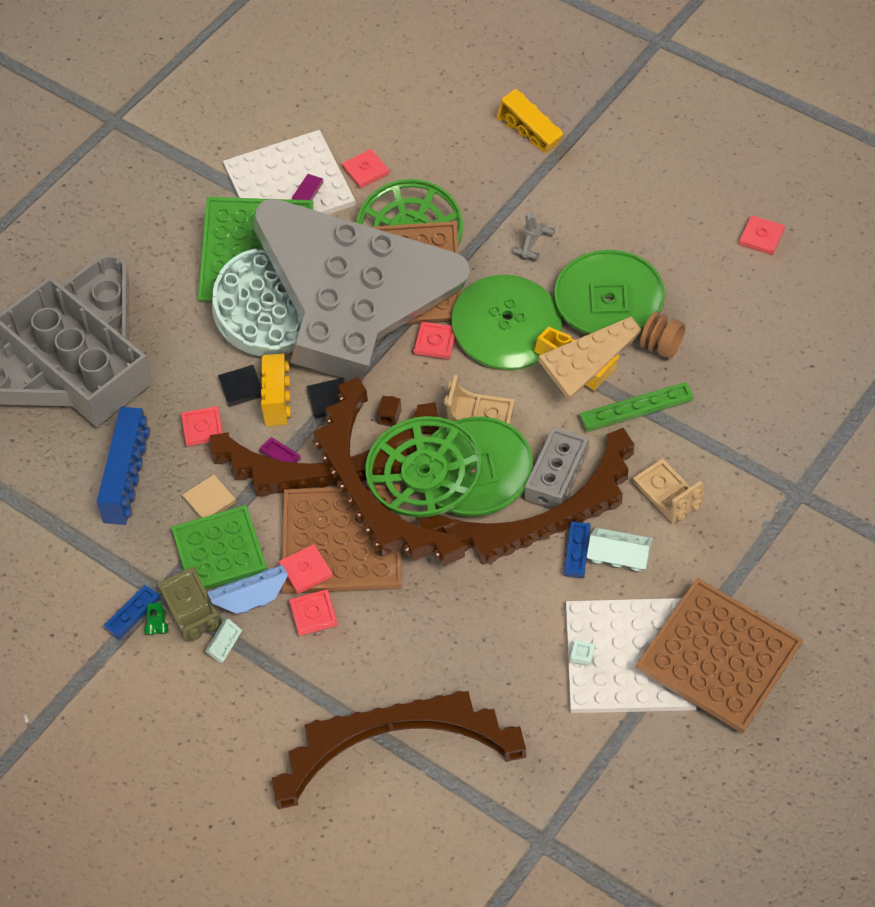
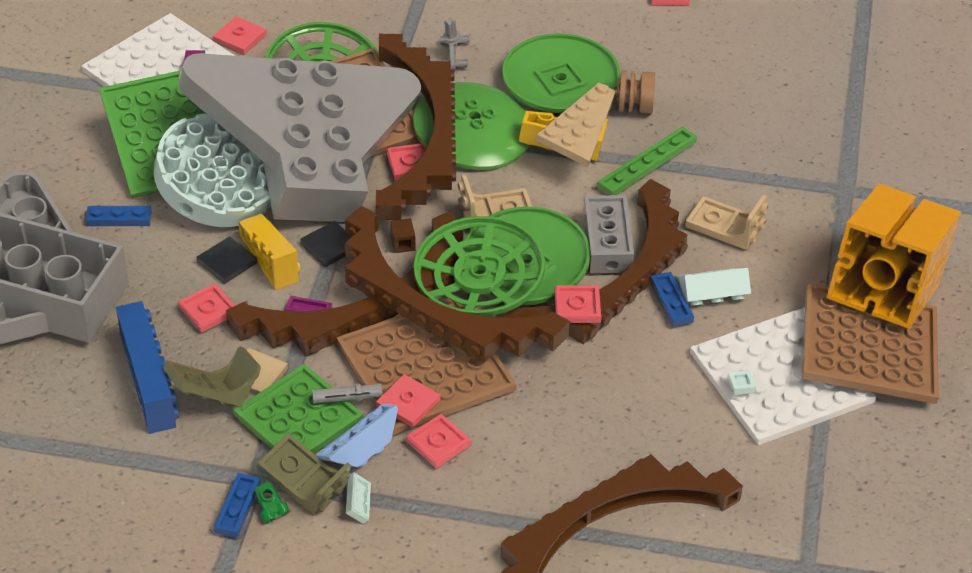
camera: 30 degrees left, 10 degrees down
(162, 502) = (225, 385): none -> olive bracket
(180, 315) = (118, 216): none -> blue plate
(268, 547) = (347, 393): none -> light grey pin
(443, 356) = (435, 165): none -> reddish brown arch
(486, 530) = (578, 303): none -> coral plate
(775, 582) = (893, 255): none -> light orange brick

